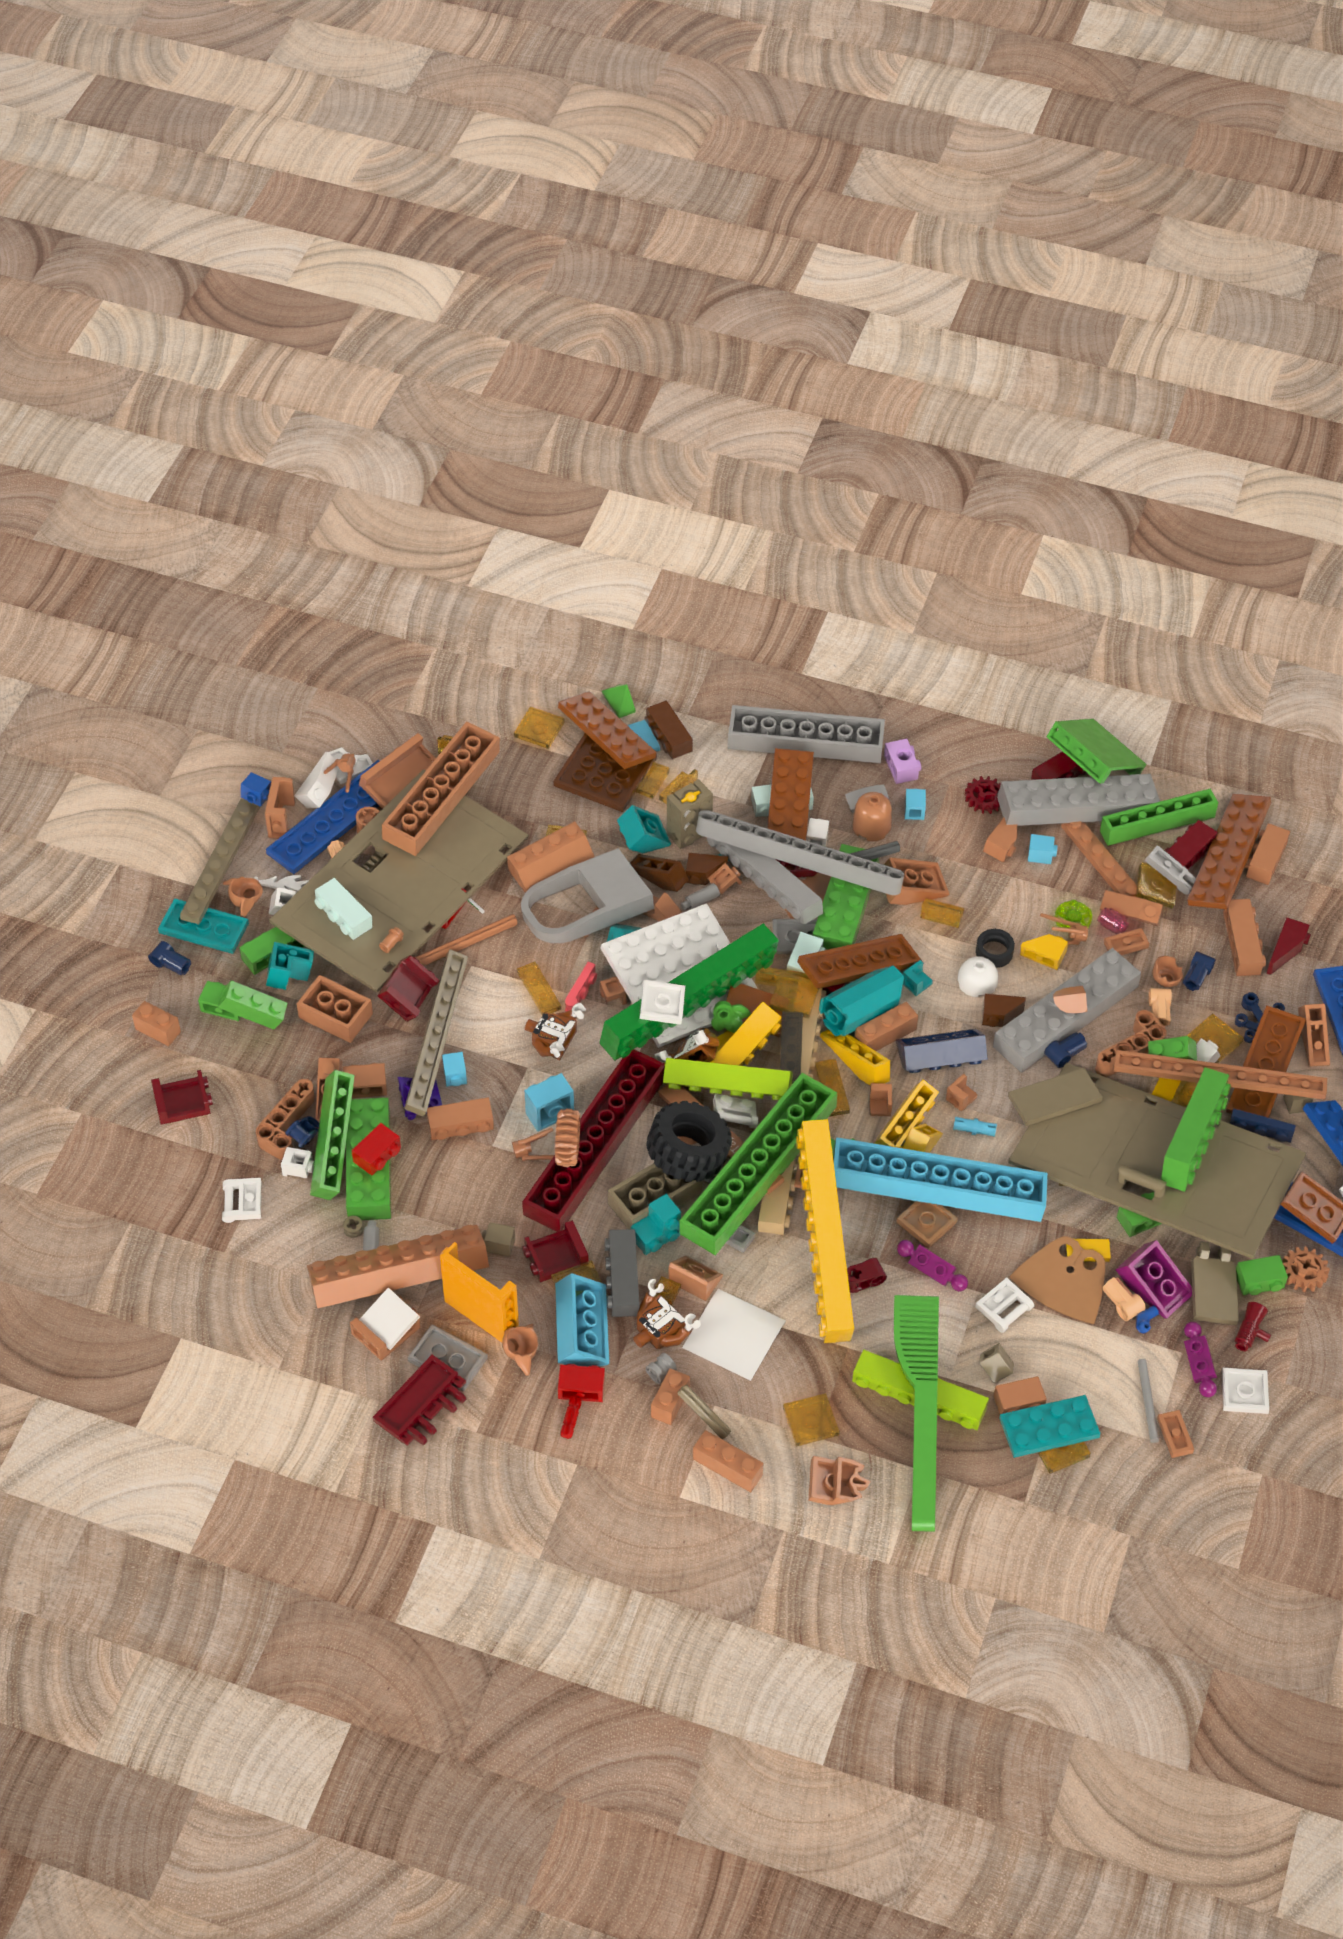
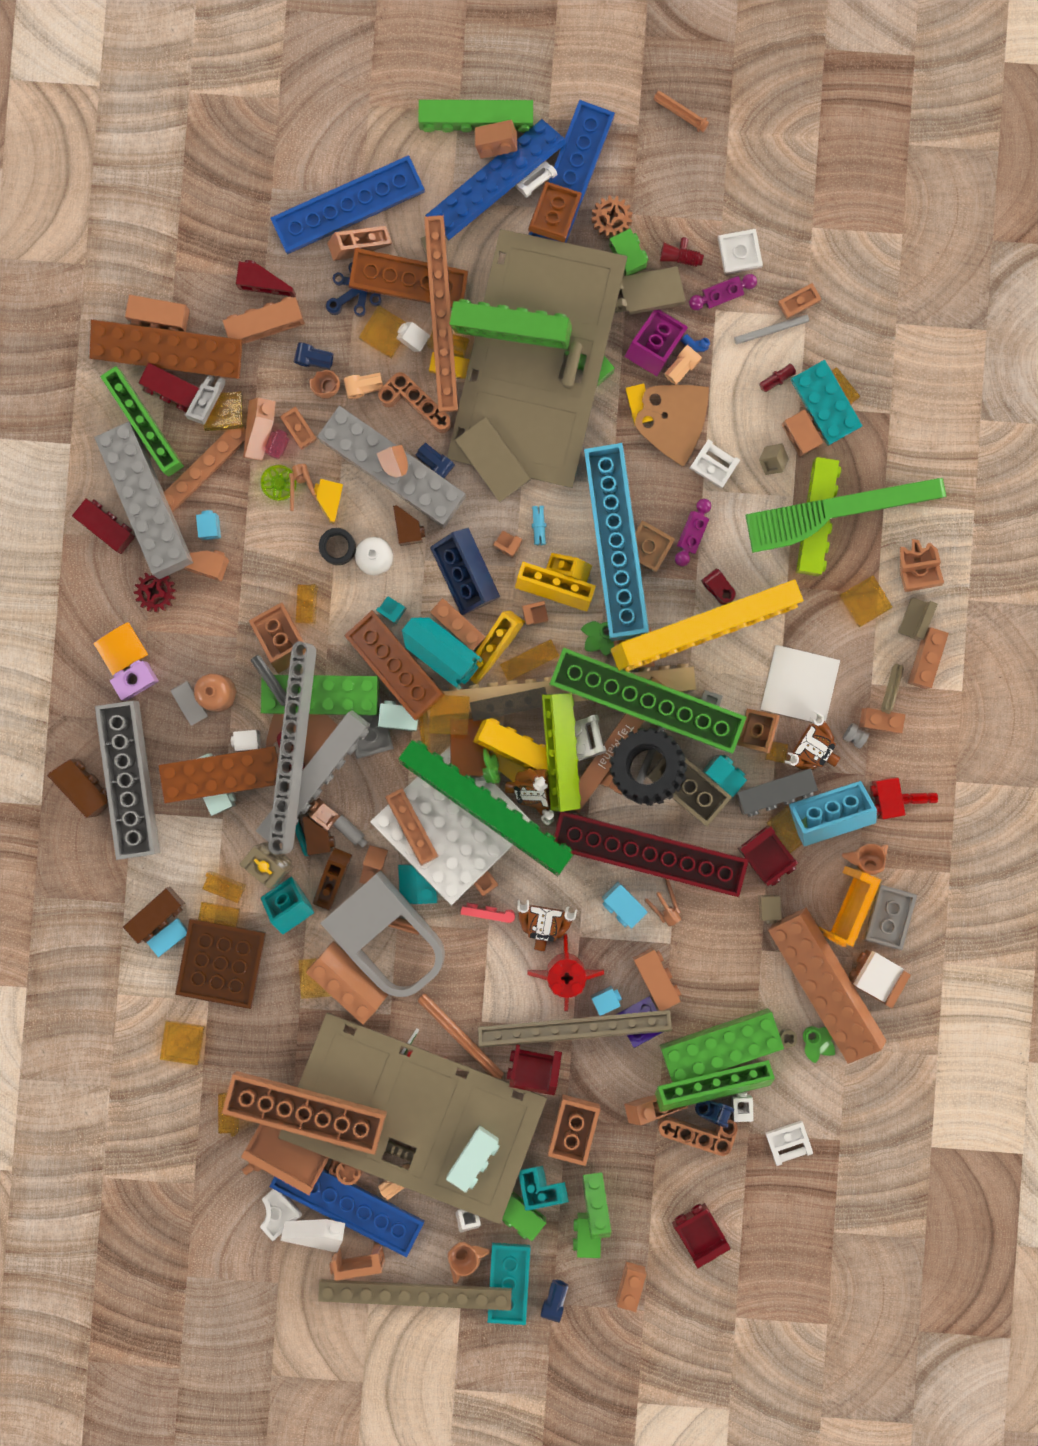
camera: 100 degrees left, 35 degrees up
(255, 789) = (348, 1292): blue brick -> none
(288, 882) = (434, 1223): white piece -> none
(333, 1247) = (819, 1044): none -> bright green plate
(345, 764) = (288, 1215): nougat plant -> none
(368, 1080) = (639, 1076): nougat brick -> none
(371, 1236) = (800, 1017): light grey cylinder -> none
(376, 1149) = (728, 1041): red brick -> none
(391, 939) = (492, 1102): nougat pin -> none
(420, 1396) = (942, 928): dark red hinge -> none
(495, 1035) = (556, 969): none -> red brick
(538, 988) = (493, 951): clear yellow tile -> none
(567, 1137) = (679, 874): nougat gear -> none
(607, 730) = (173, 975): dark orange plate -> none
(620, 700) = (126, 974): bright green slope -> none
(662, 1002) = (521, 827): white tile -> none
(690, 932) = (411, 826): none -> nougat tile
(778, 1467) = (917, 618): none -> dark tan panel
(810, 693) = (80, 787): none -> reddish brown slope
(915, 804) = (184, 656): medium azure brick -> none
(937, 758) = (120, 648): none -> light orange slope
(1089, 1389) = (777, 378): none -> dark red axle
(1094, 748) = (80, 493): bright green panel -> none
(1177, 1047) = (421, 362): bright green brick -> none
(1263, 1126) = (473, 273): dark blue plate -> none

